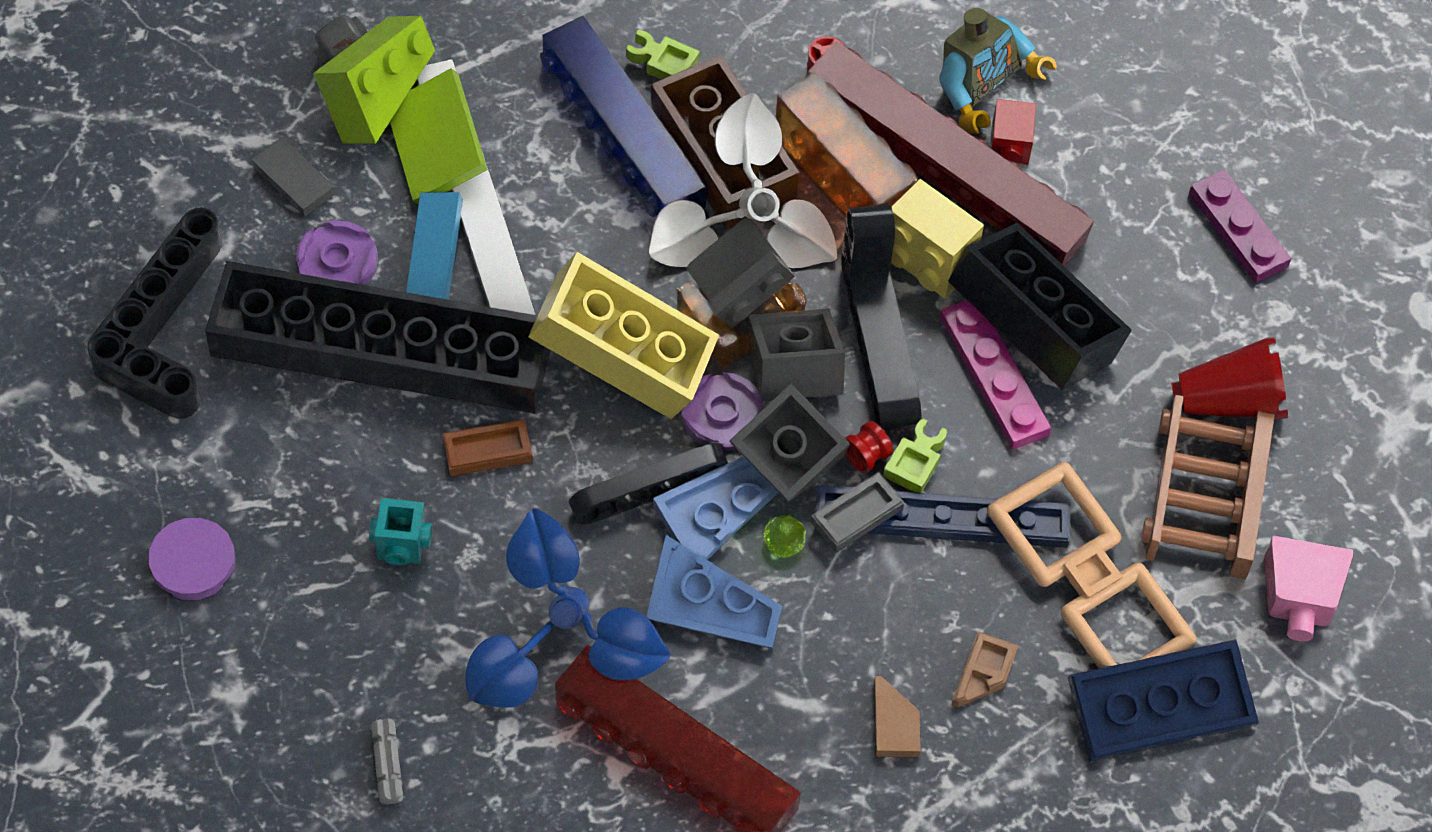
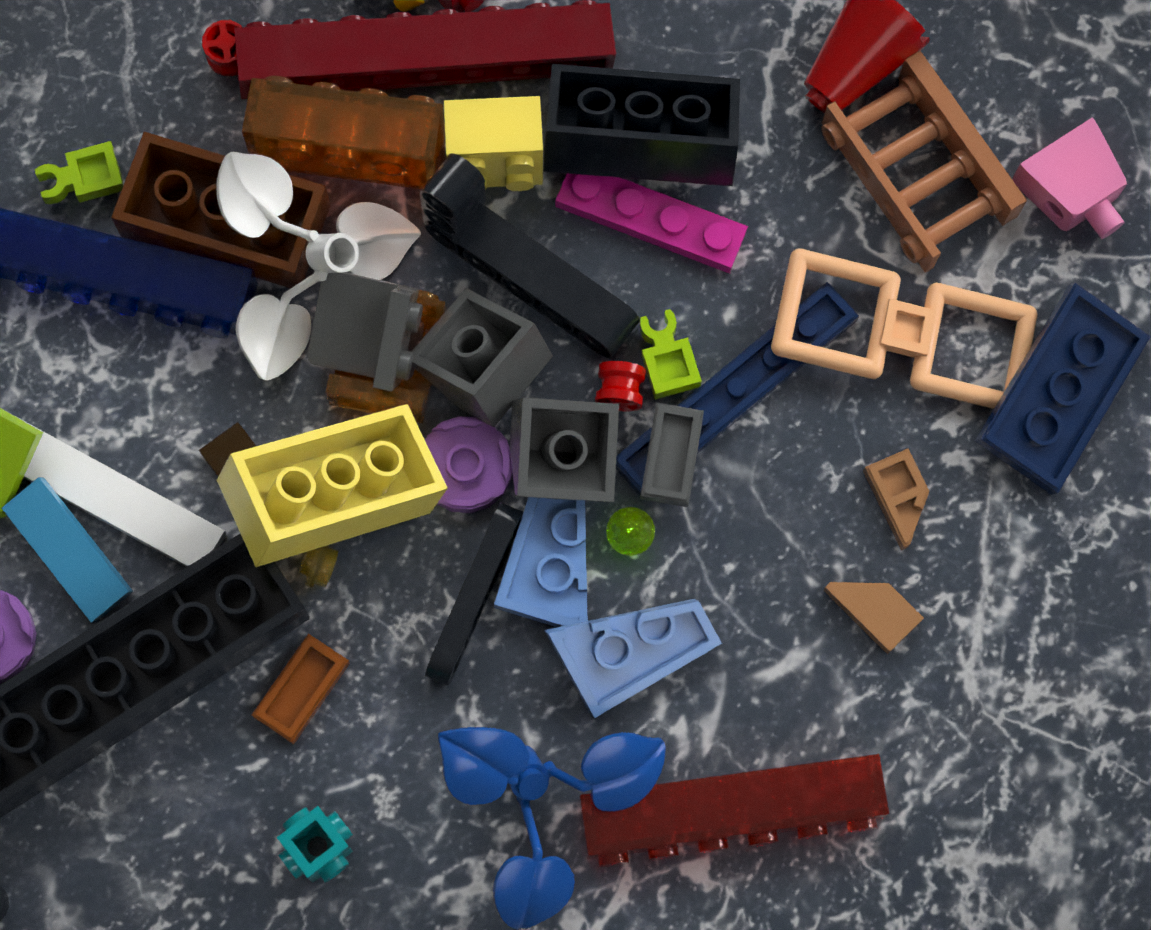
camera: 45 degrees left, 15 degrees up
(571, 385) = (318, 566): none -> clear yellow plate

